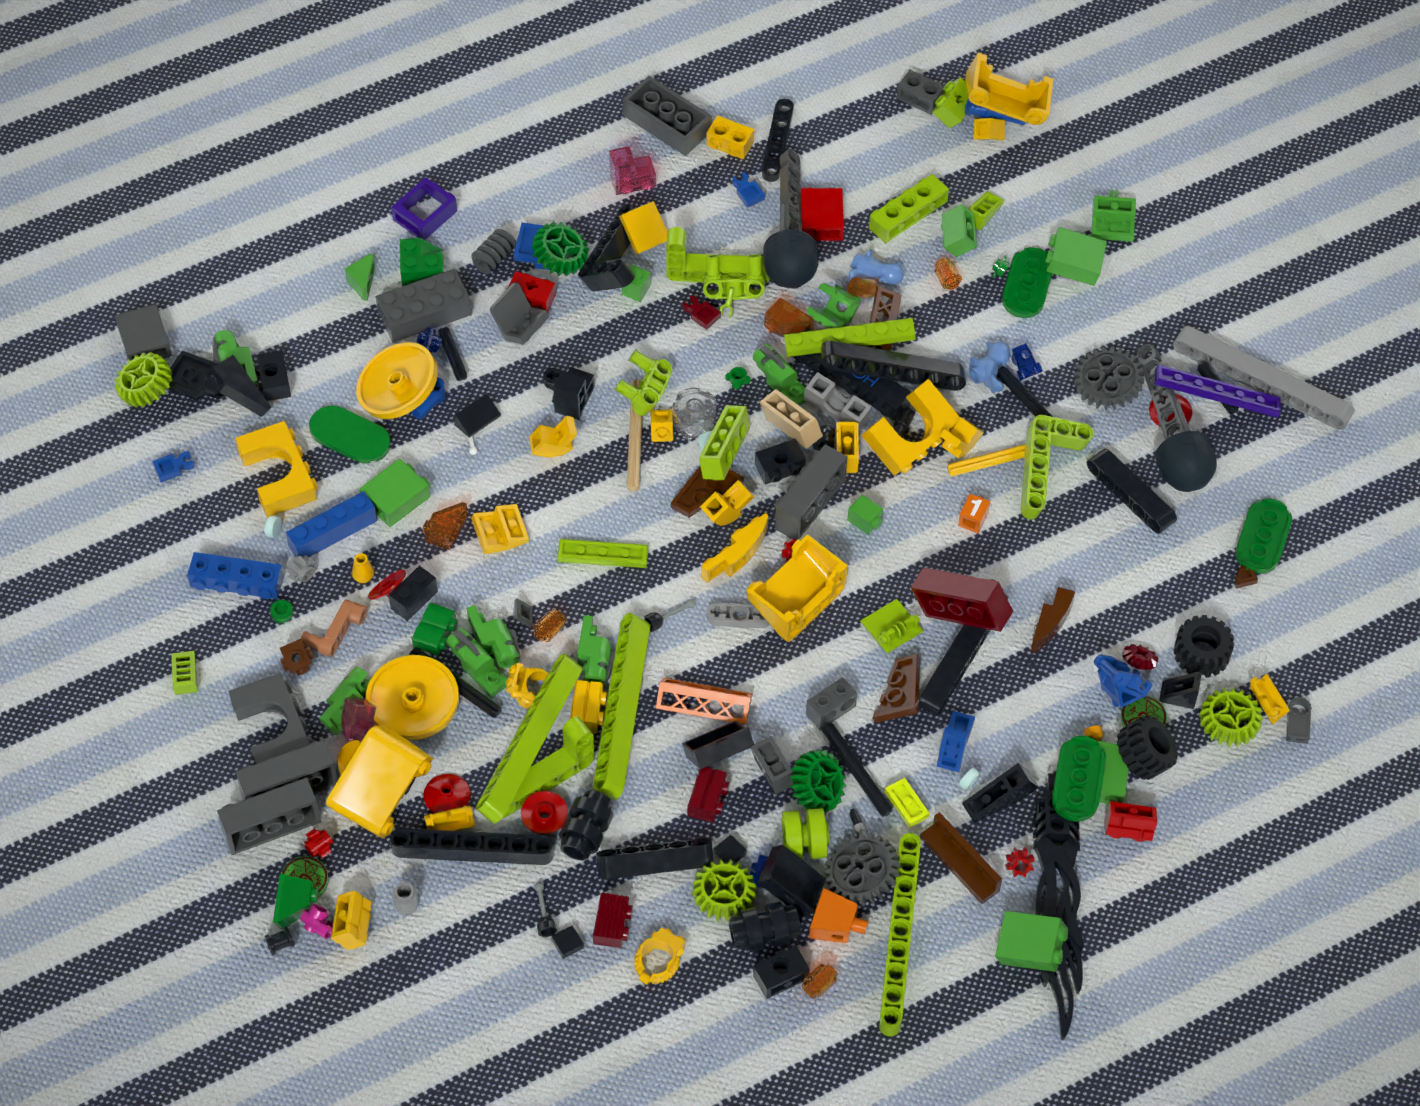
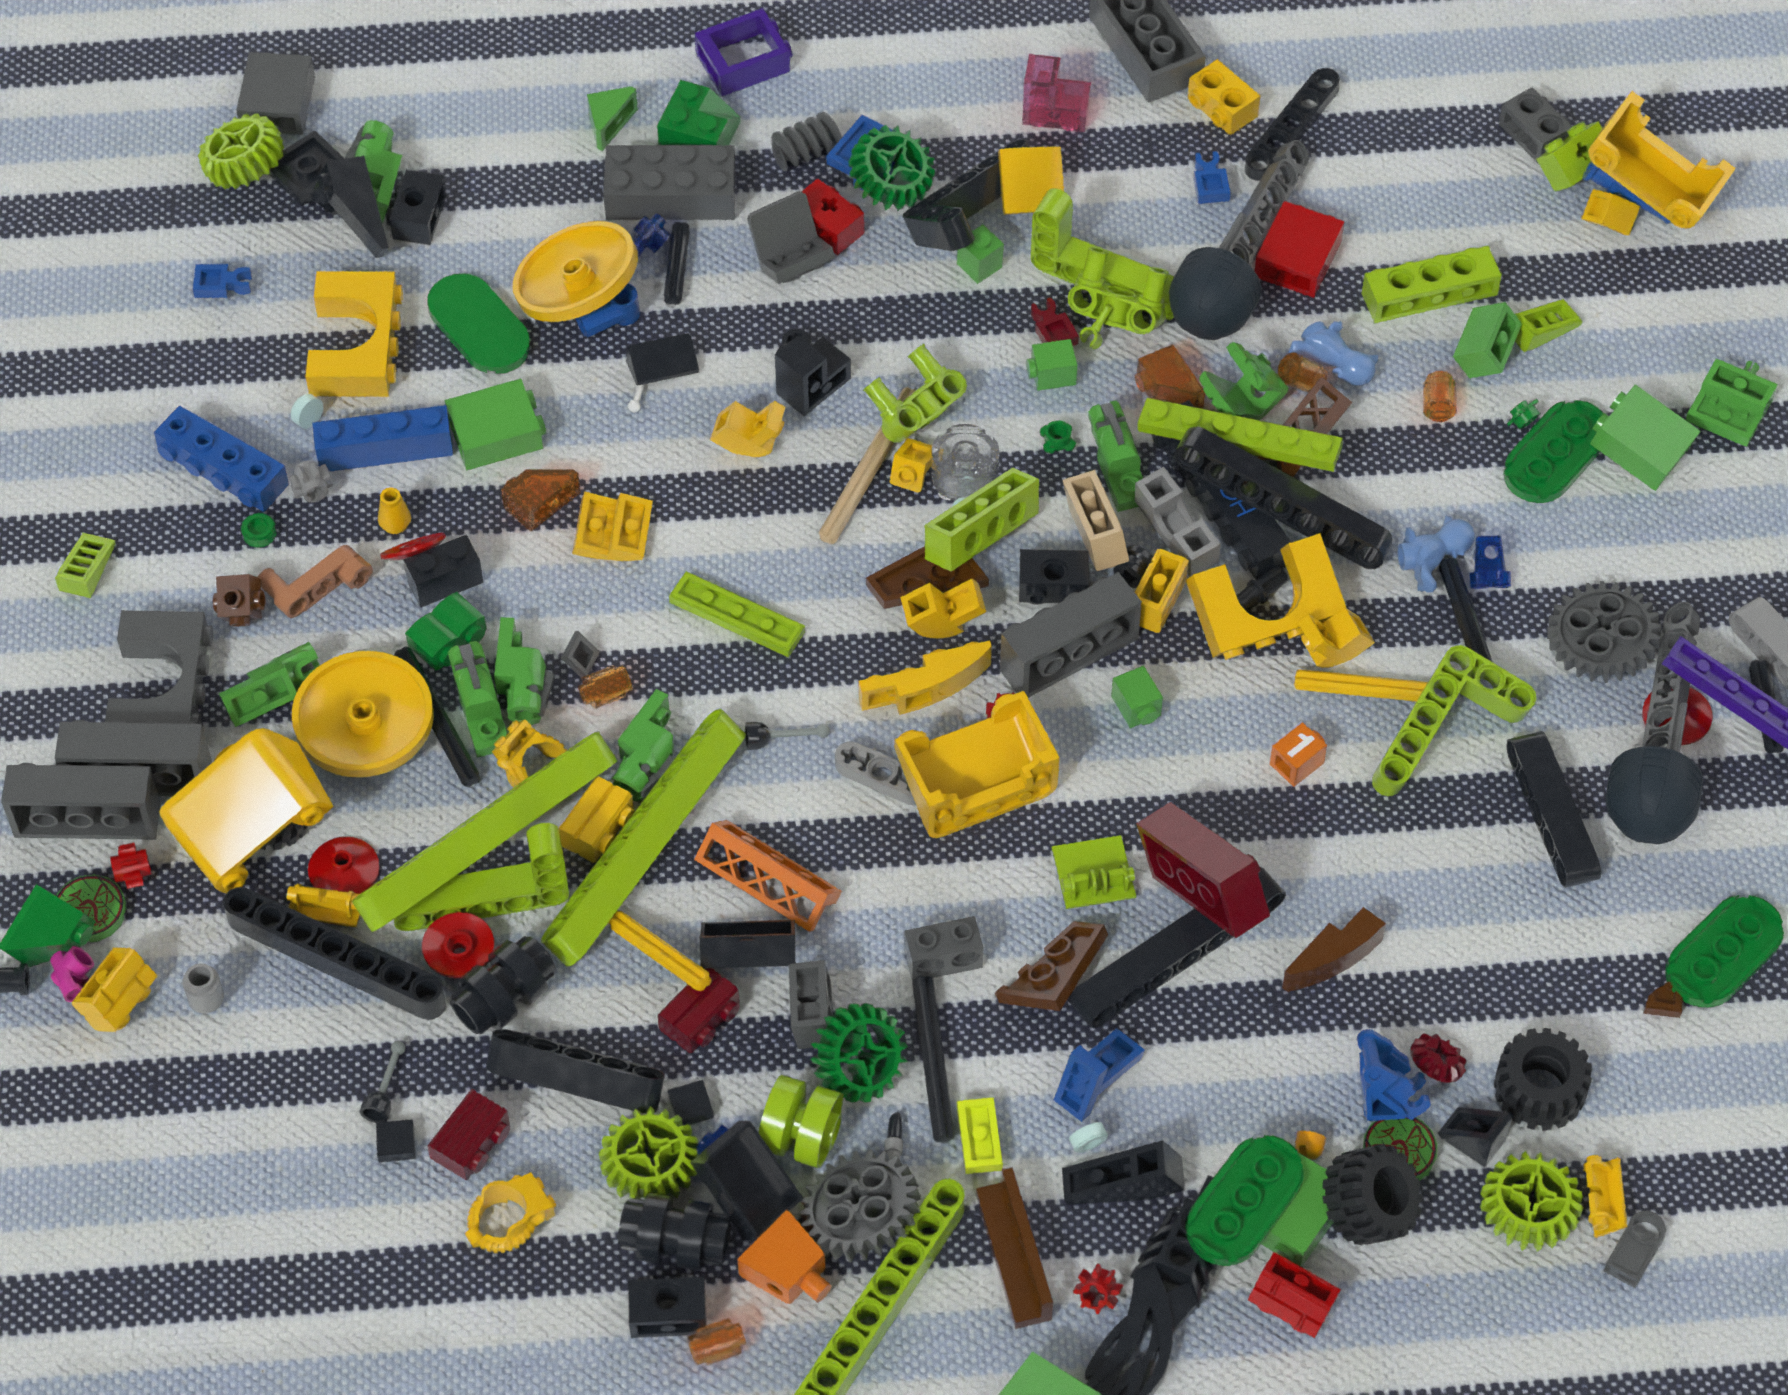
camera: 25 degrees right, 0 degrees up
(357, 718) = (272, 708): clear pink brick -> none
(669, 768) = (660, 951): none -> yellow axle
(714, 335) = (1052, 365): none -> bright green brick

